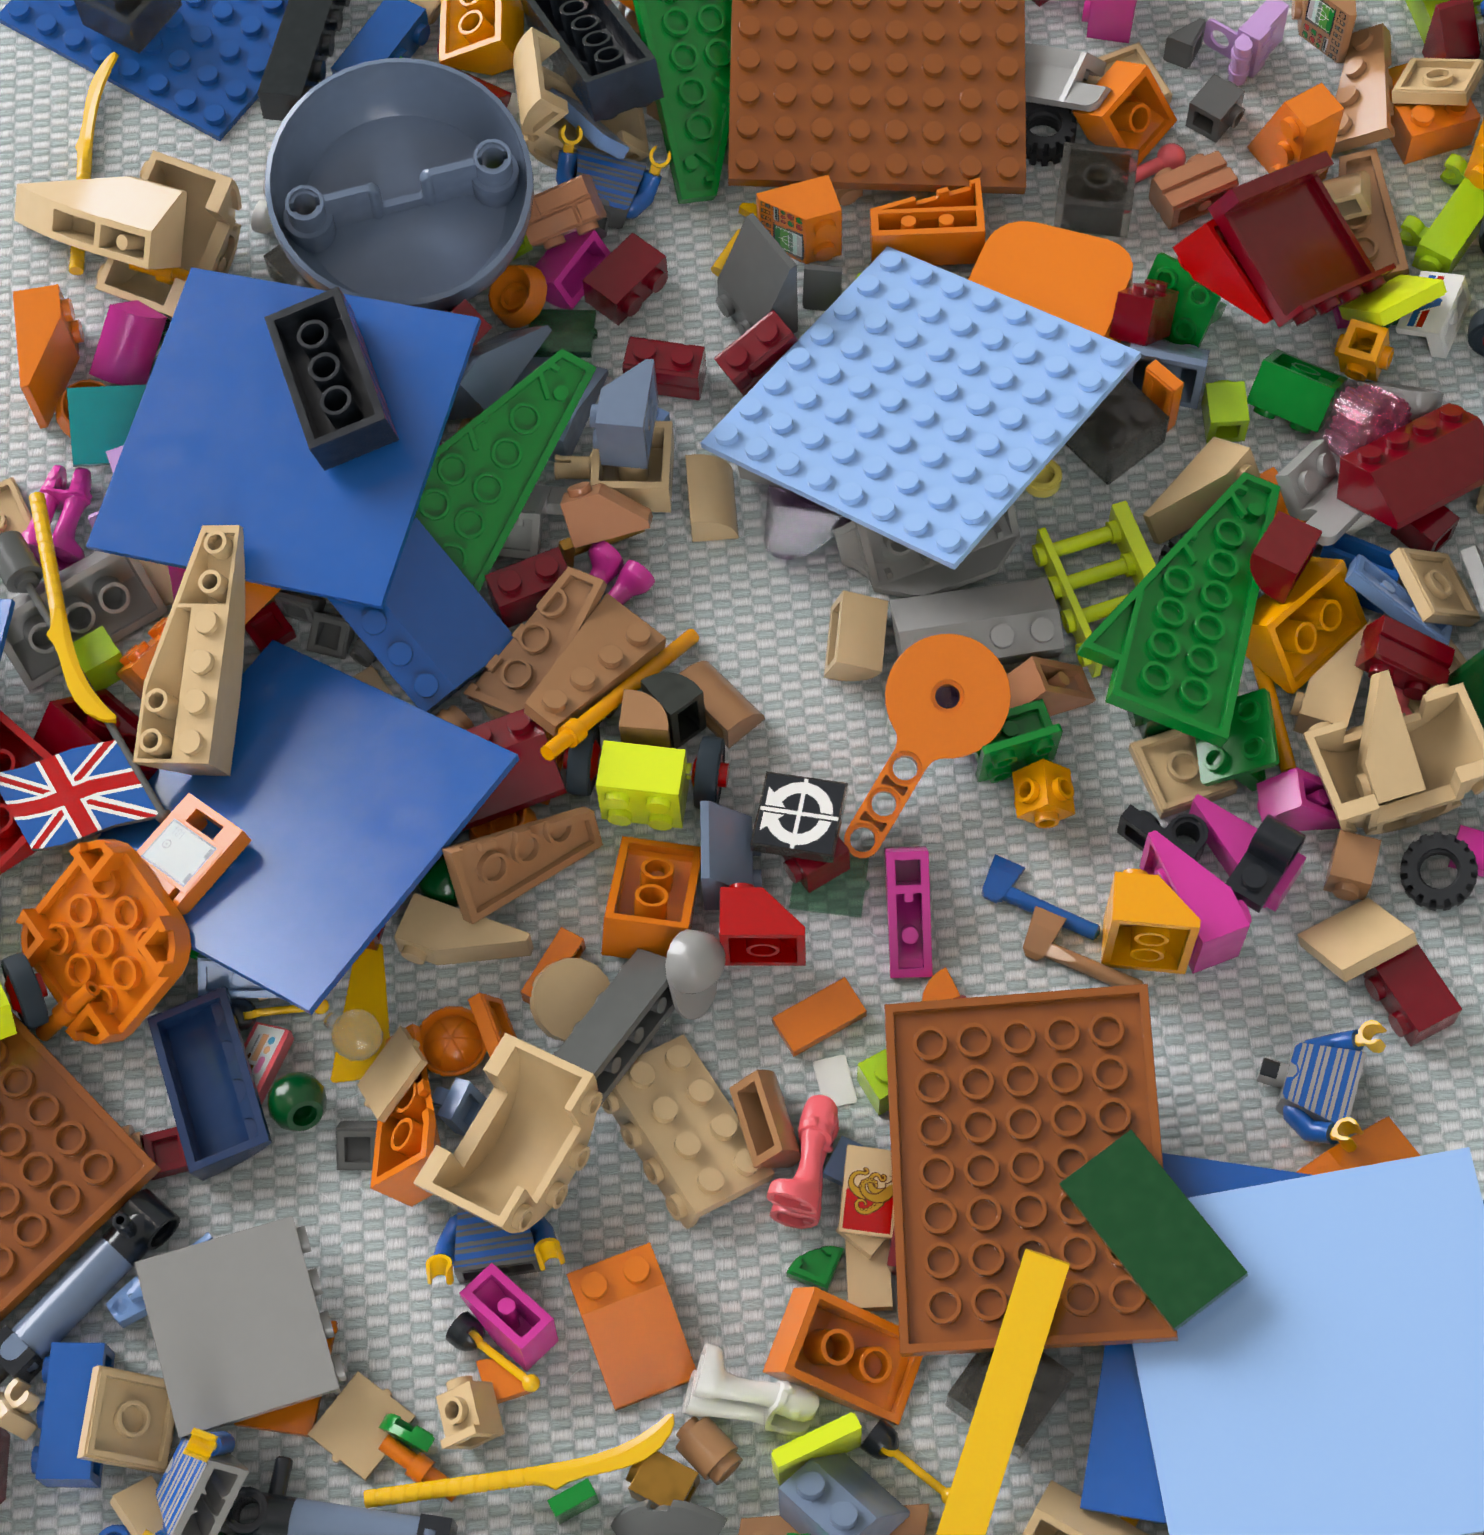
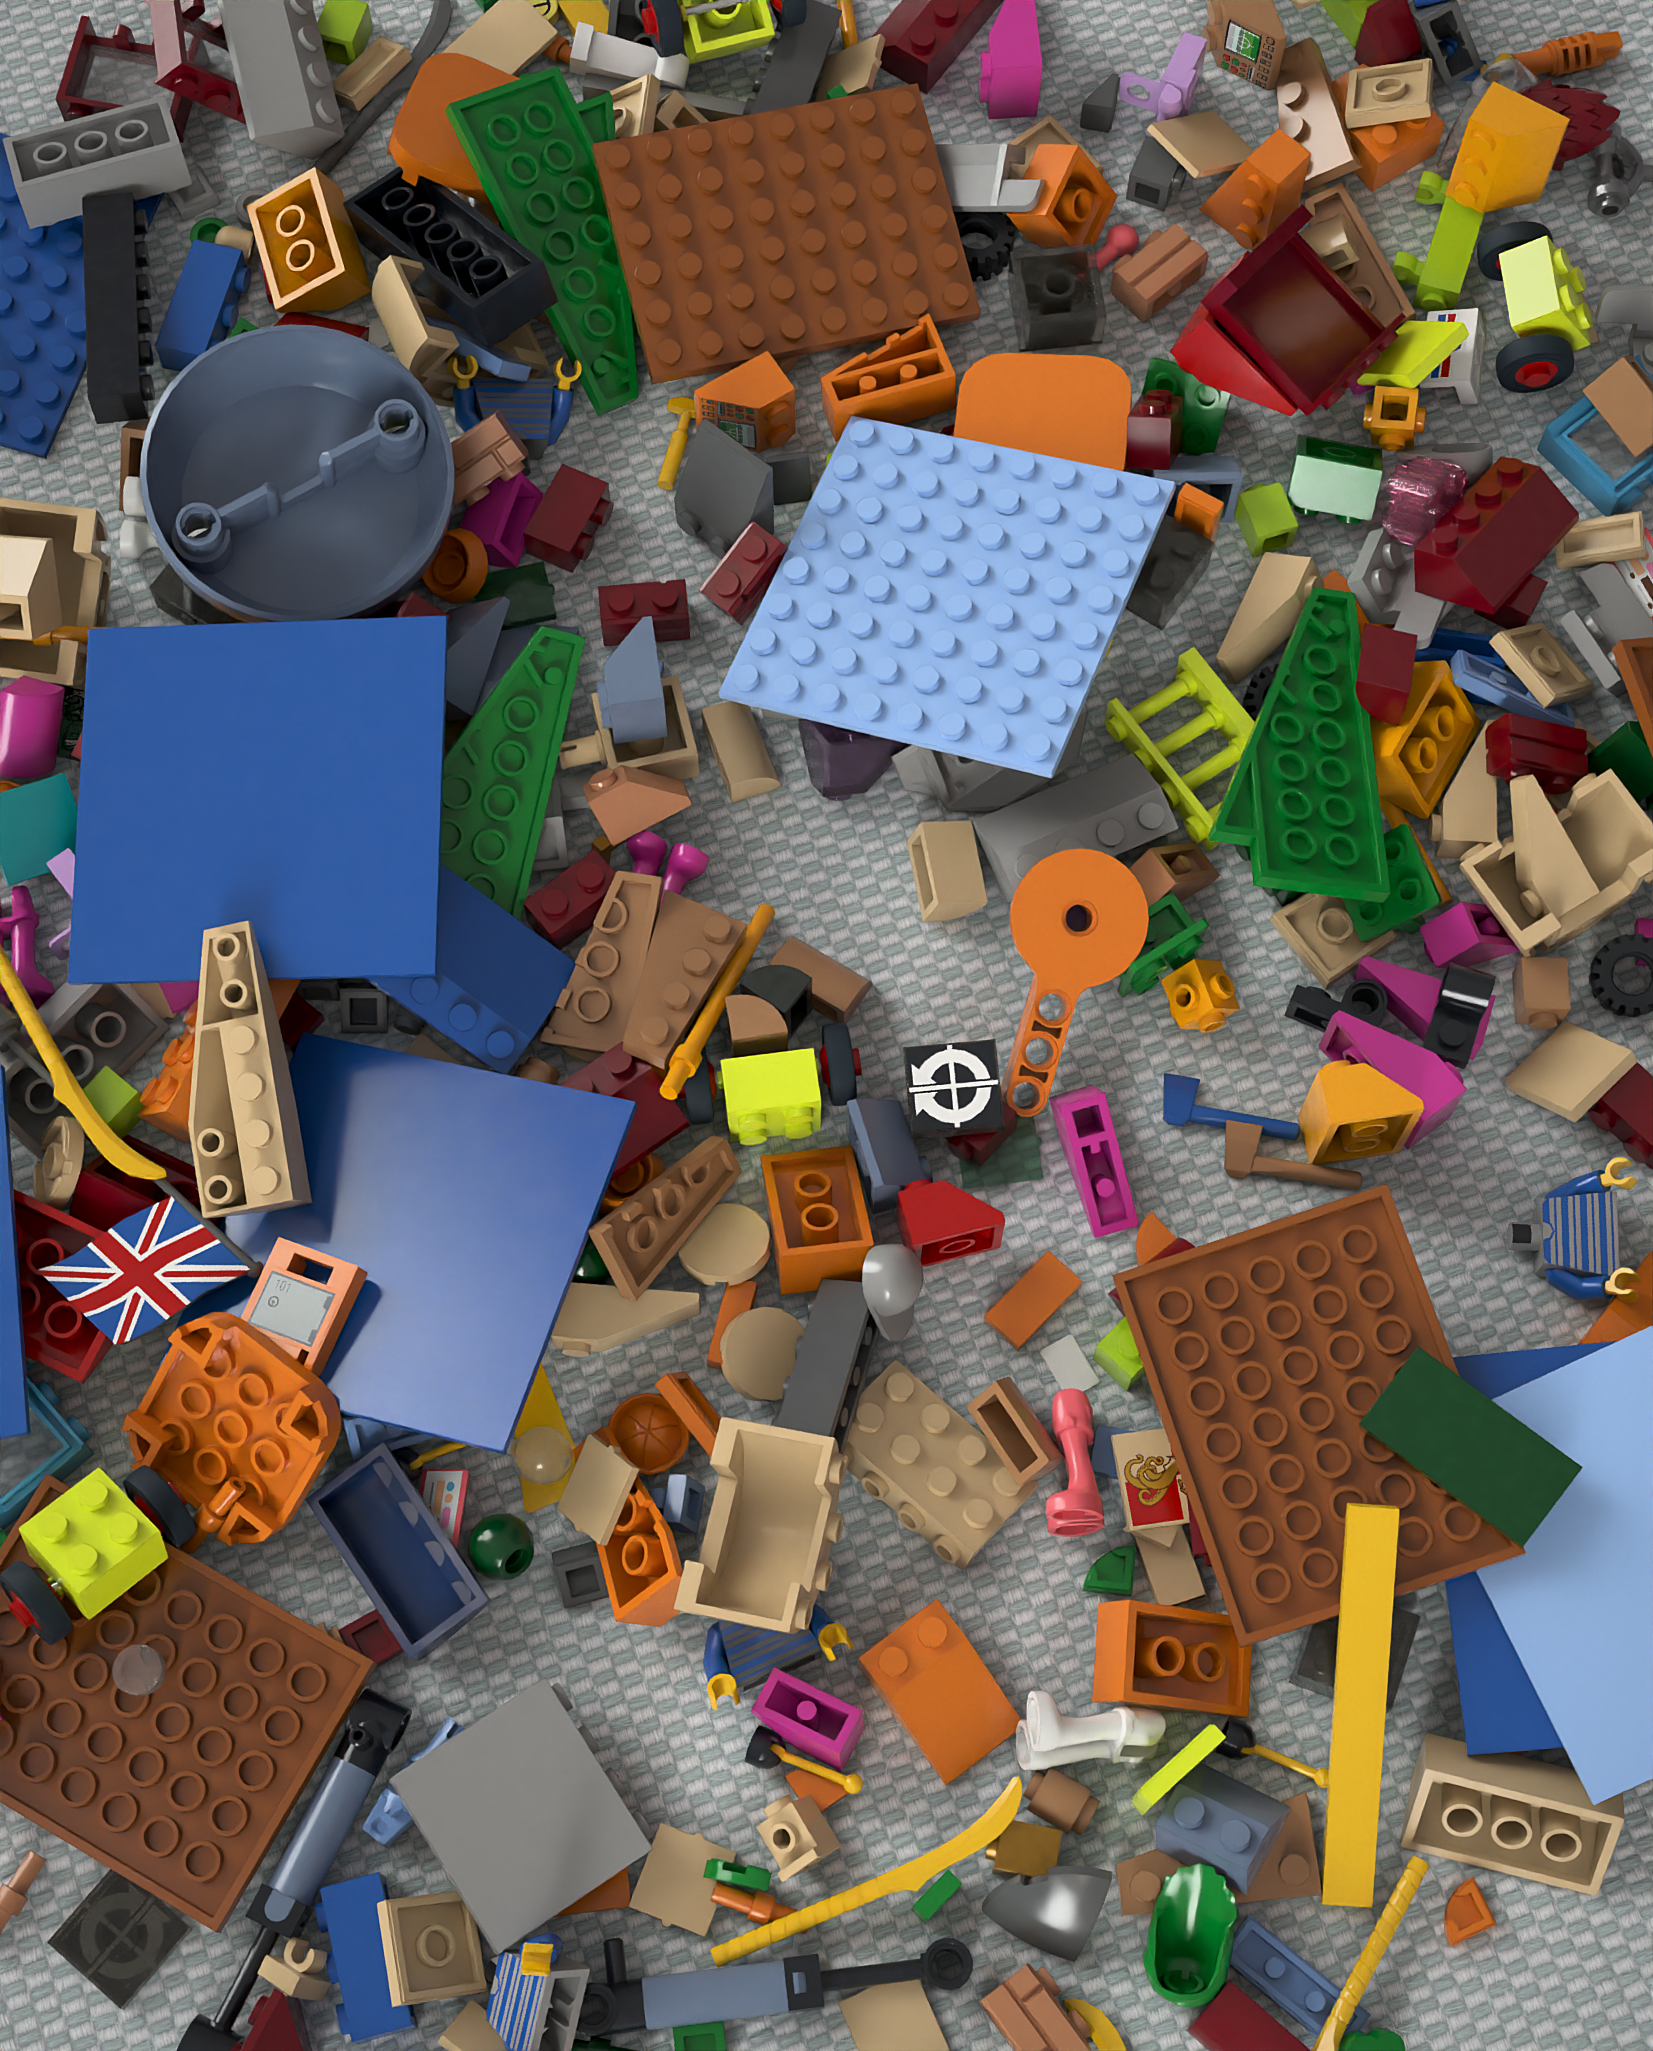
camera: 20 degrees left, 5 degrees up
(39, 693) = (59, 1172): none -> tan tile
(331, 379) = (302, 727): black brick -> none
(567, 901) = (727, 1246): none -> tan tile
(1257, 89) = (1202, 143): none -> tan piece

